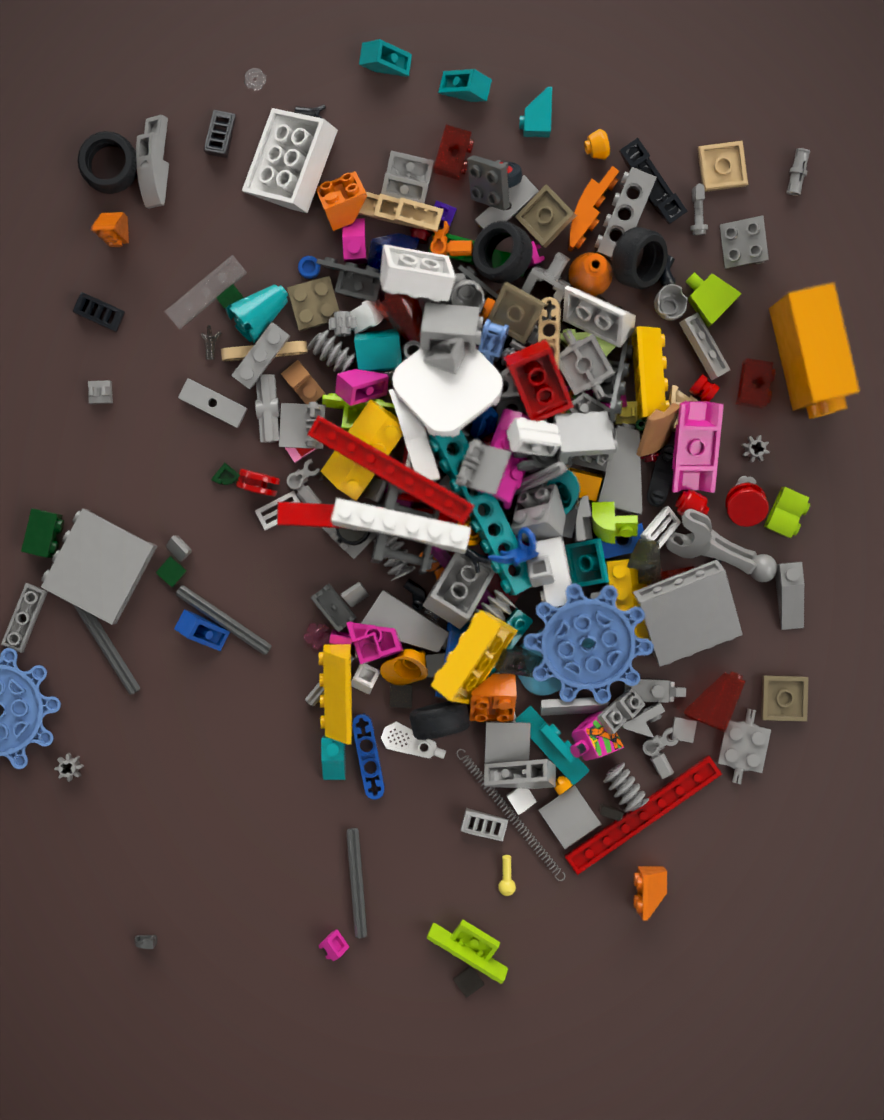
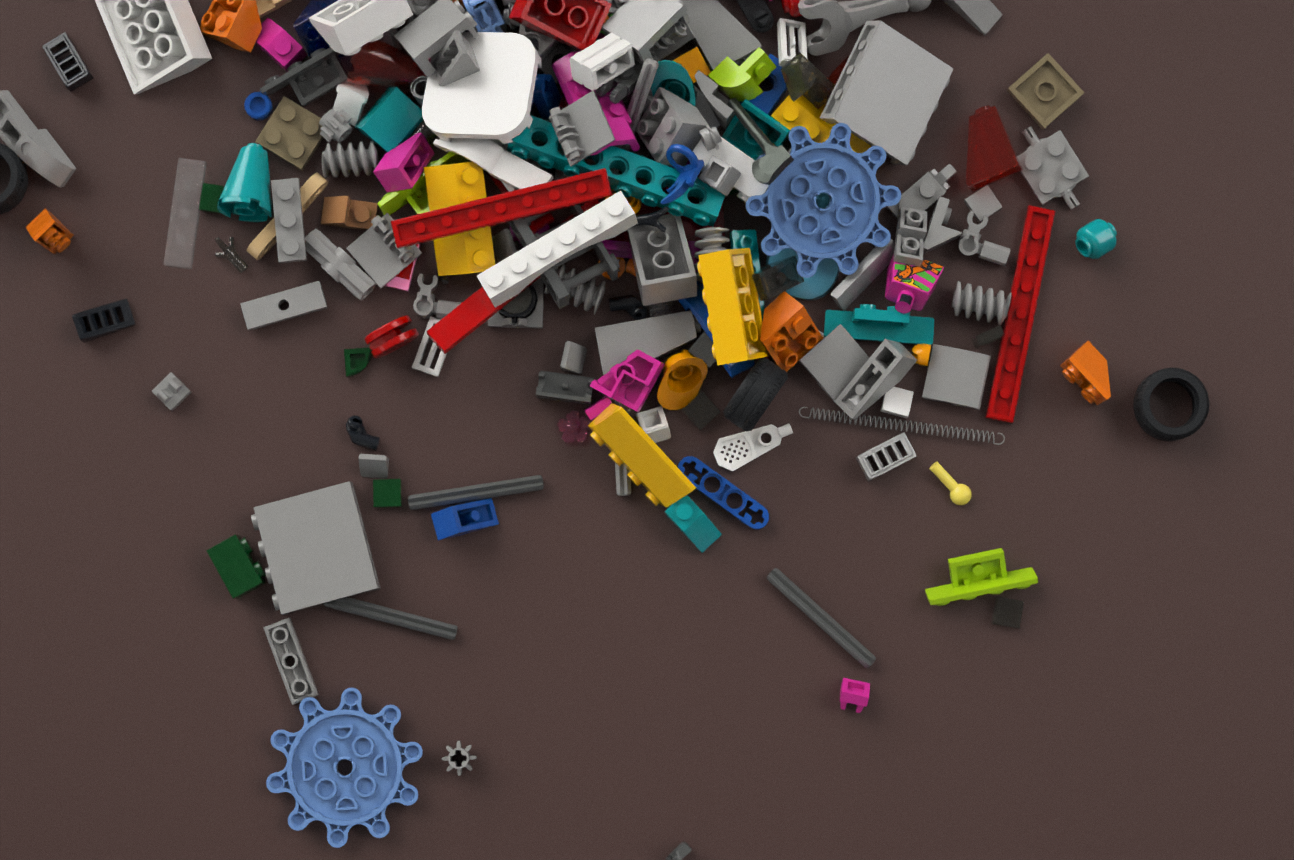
camera: 40 degrees left, 5 degrees down
(186, 521) = (359, 435): none -> black arm
(555, 544) = (710, 137): none -> light grey plate
(582, 596) = (776, 158): none -> pearl dark grey piece
(692, 972) = (1196, 391): none -> black tyre
(730, 814) = (1096, 239): none -> teal head

